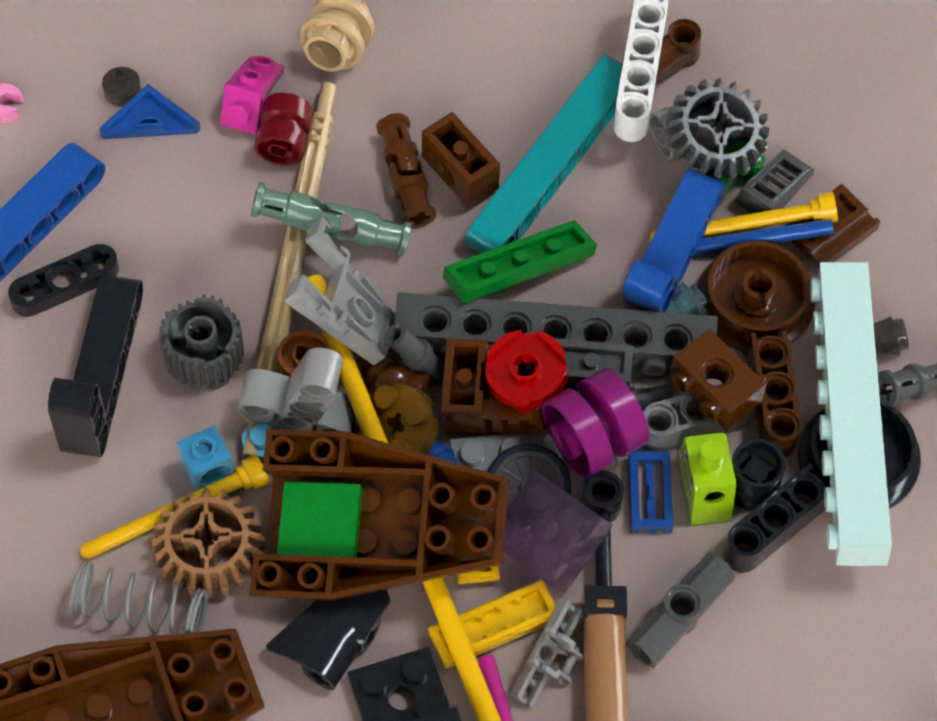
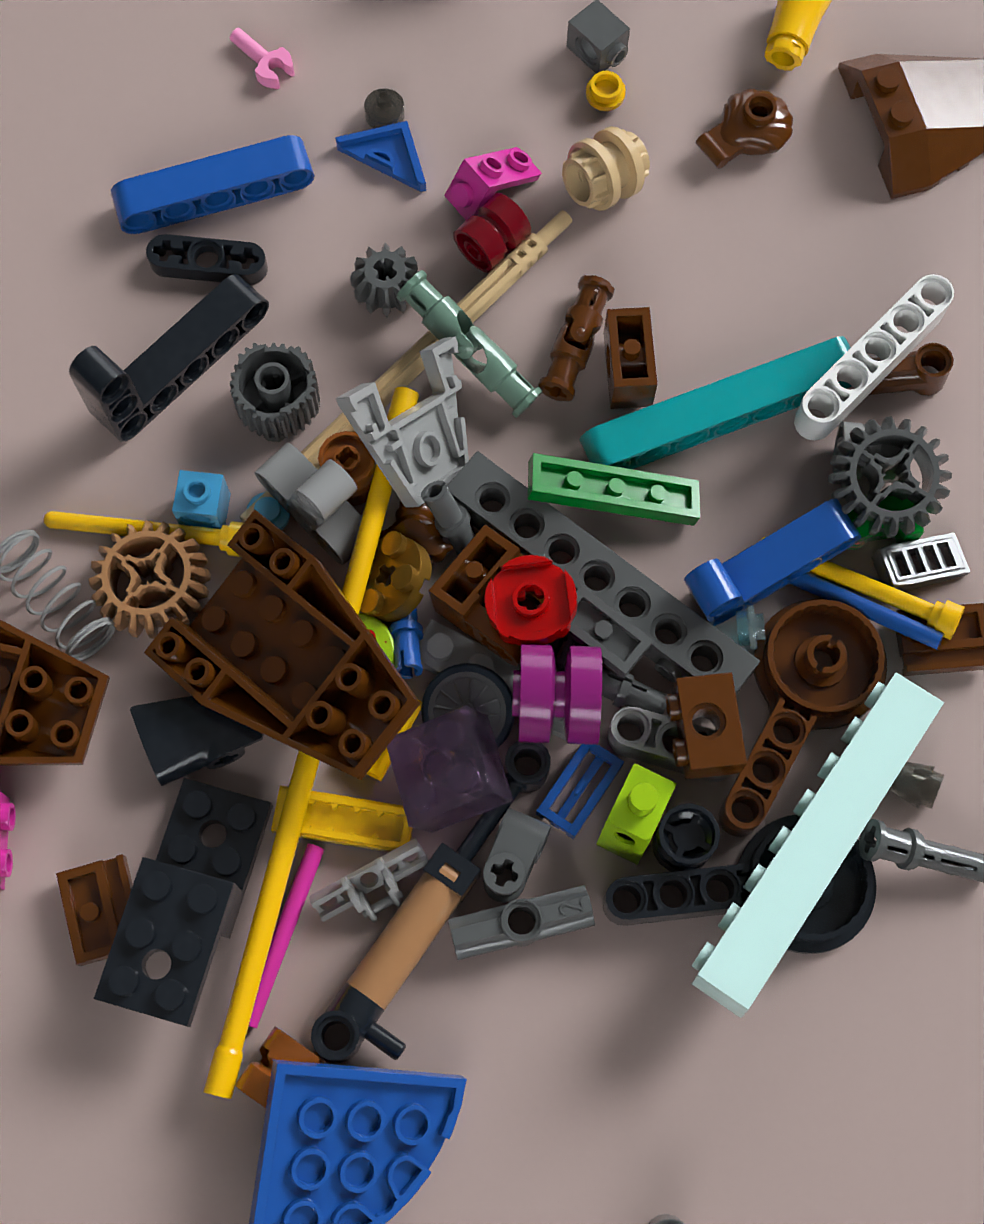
camera: 35 degrees right, 10 degrees up
(223, 211) = (381, 277): none -> dark grey gear
(320, 519) = (248, 625): green piece -> none
(639, 563) = (517, 849): none -> dark grey piece

